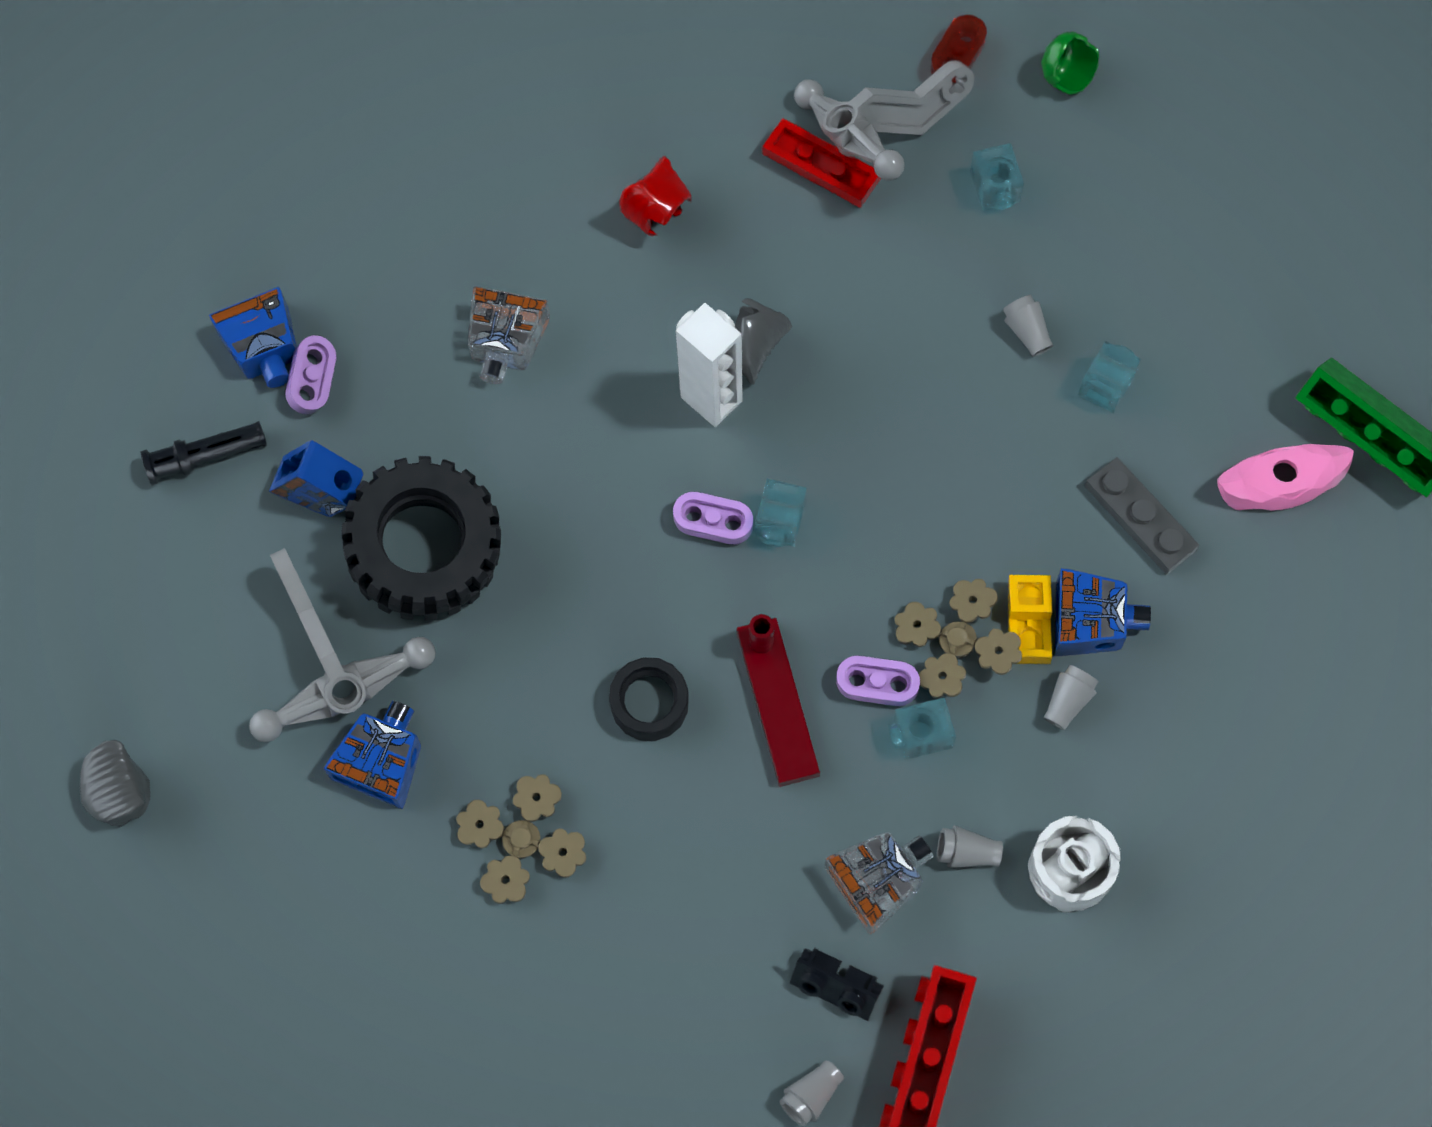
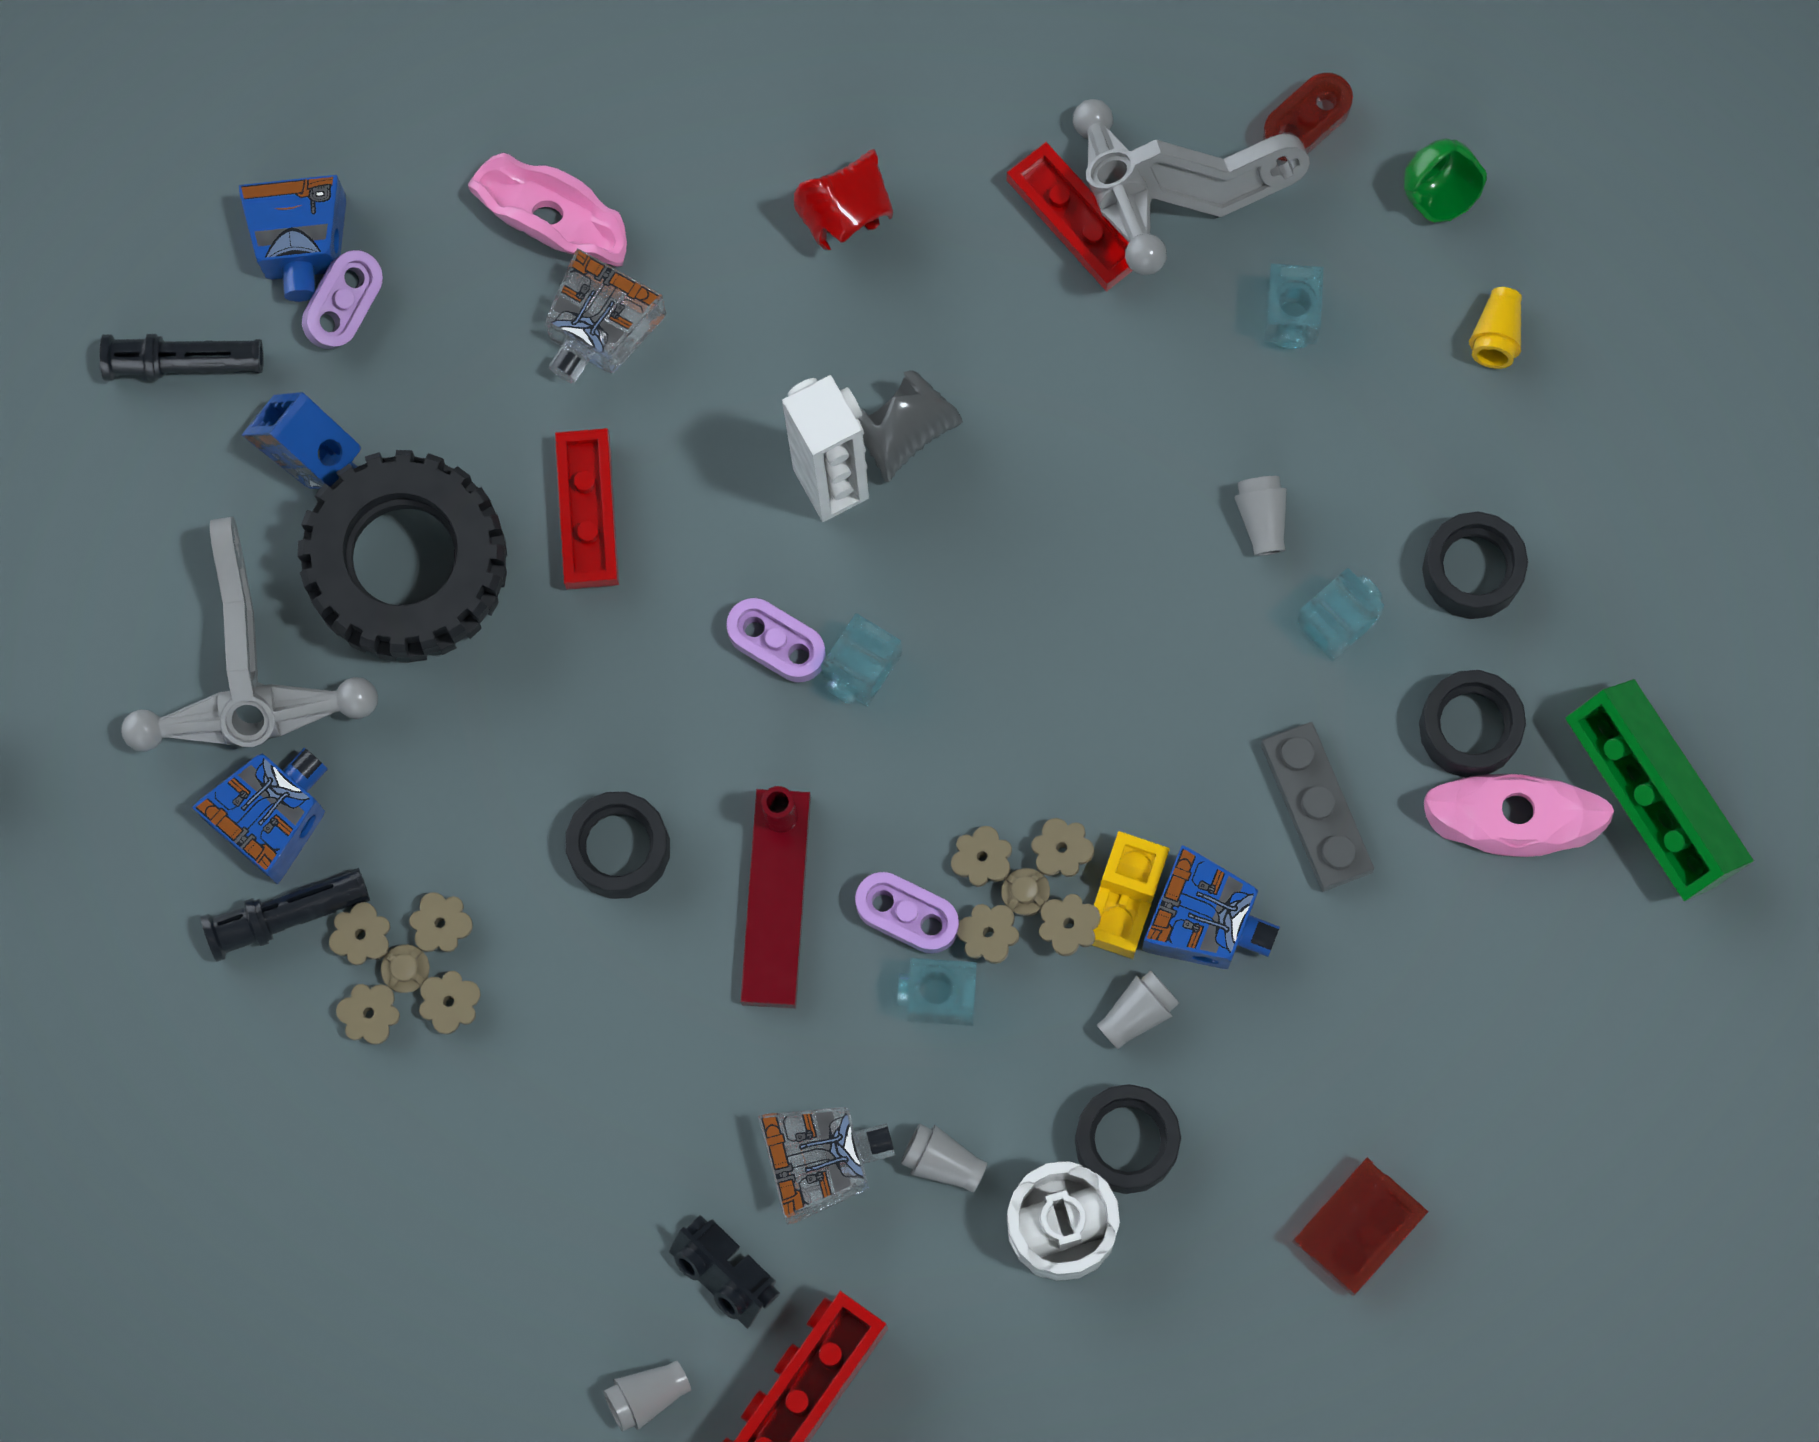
camera: 20 degrees right, 5 degrees up
(401, 837) = (261, 920): none -> black pin
(415, 261) = (519, 189): none -> bright pink piece
(542, 468) = (587, 508): none -> red plate
(1105, 760) = (1138, 1098): none -> black tyre
(1145, 153) = (1498, 331): none -> yellow cone
(1198, 289) = (1485, 527): none -> black tyre
(1242, 398) = (1485, 685): none -> black tyre
(1286, 799) = (1360, 1226): none -> clear red plate

